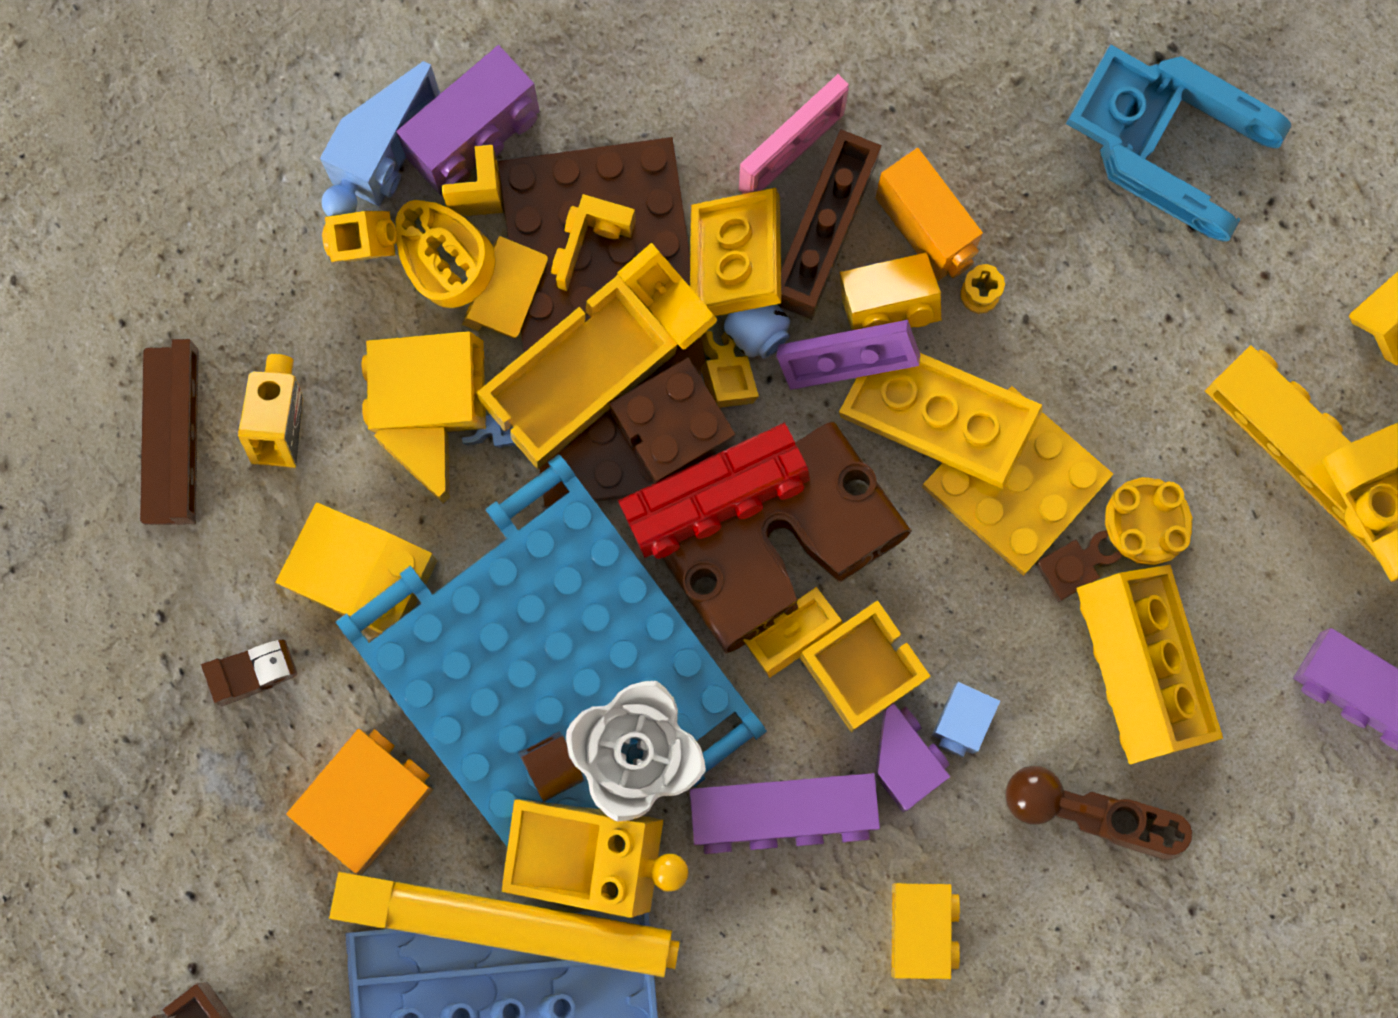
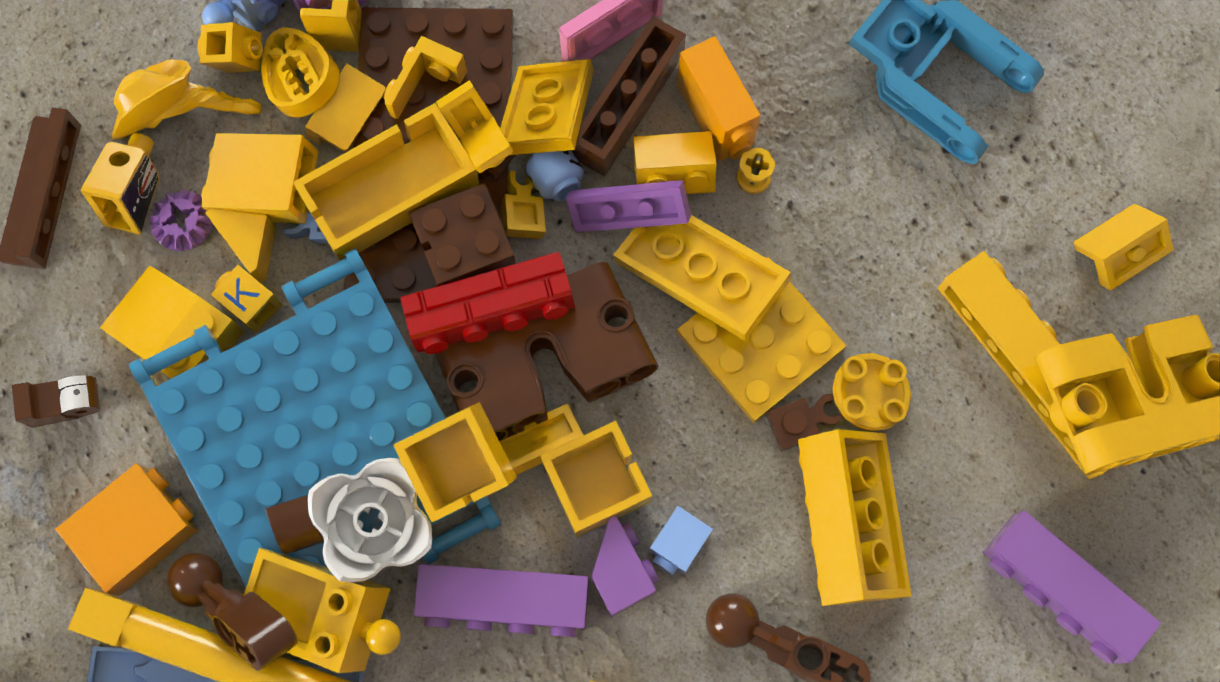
camera: 10 degrees right, 5 degrees down
(295, 301) = (164, 92): none -> yellow hat
(336, 465) = (173, 236): none -> medium lavender gear
(435, 524) = (245, 298): none -> yellow brick
(515, 880) = (242, 621): none -> reddish brown beam
(711, 670) = (454, 460): none -> yellow piece

